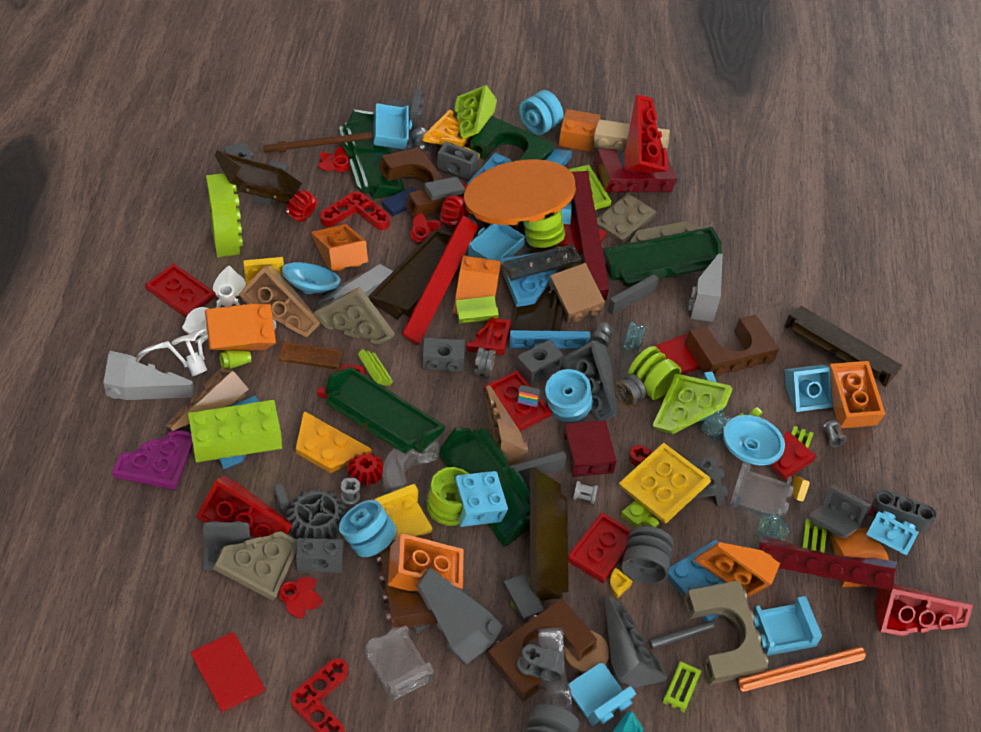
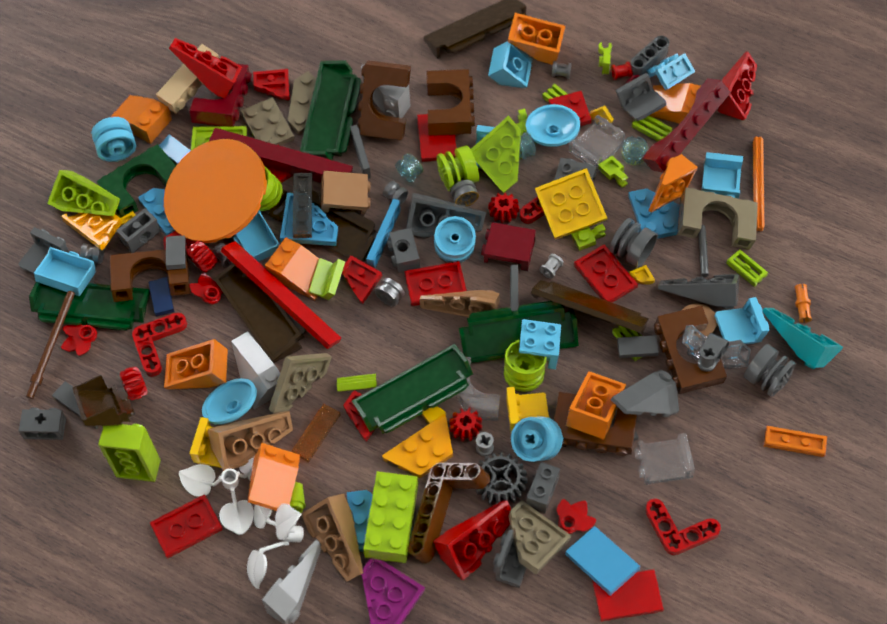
camera: 60 degrees left, 10 degrees up
(256, 634) = (602, 560): none -> dark azure tile
(263, 467) = (435, 501): none -> reddish brown beam
(281, 499) = (472, 502): dark grey tile -> none
(368, 439) = (432, 414): none -> yellow tile
(443, 354) = (365, 312): dark grey brick -> none
(528, 396) = (442, 270): tile -> none
(633, 430) = (503, 207): none -> red gear
(671, 288) = (372, 121): none -> reddish brown arch
(673, 207) = (272, 83): none -> red wing
(735, 516) = (613, 169): none -> lime plate
(867, 488) = (621, 70): none -> red bush
(873, 470) = (604, 60): none -> lime plate

